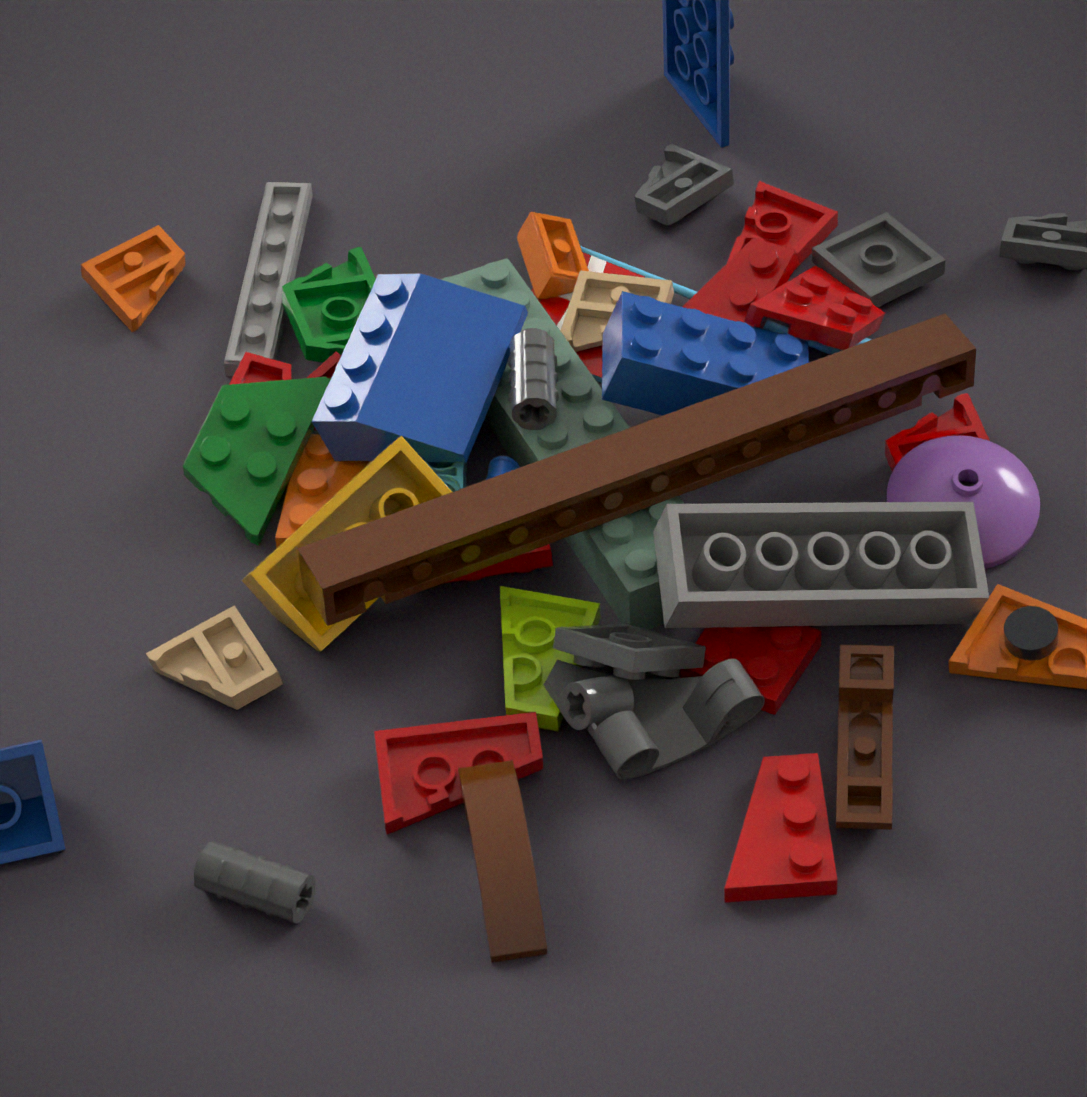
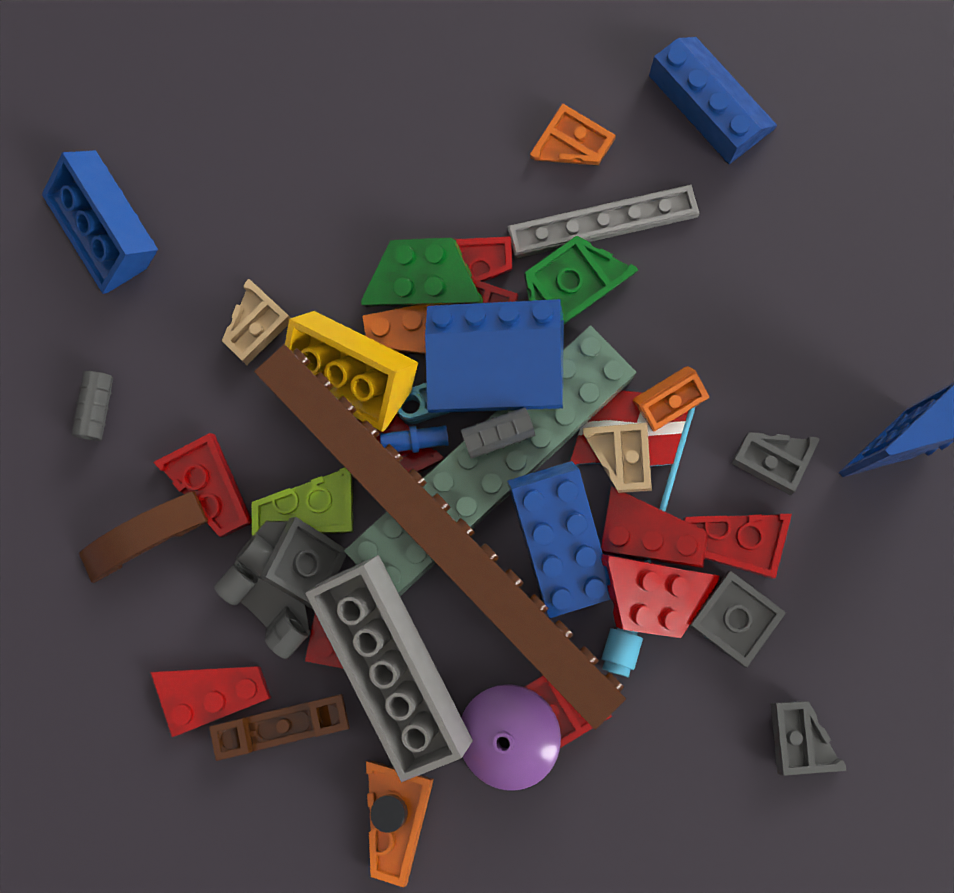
camera: 75 degrees right, 35 degrees up
(159, 141) = (710, 97): none -> blue slope

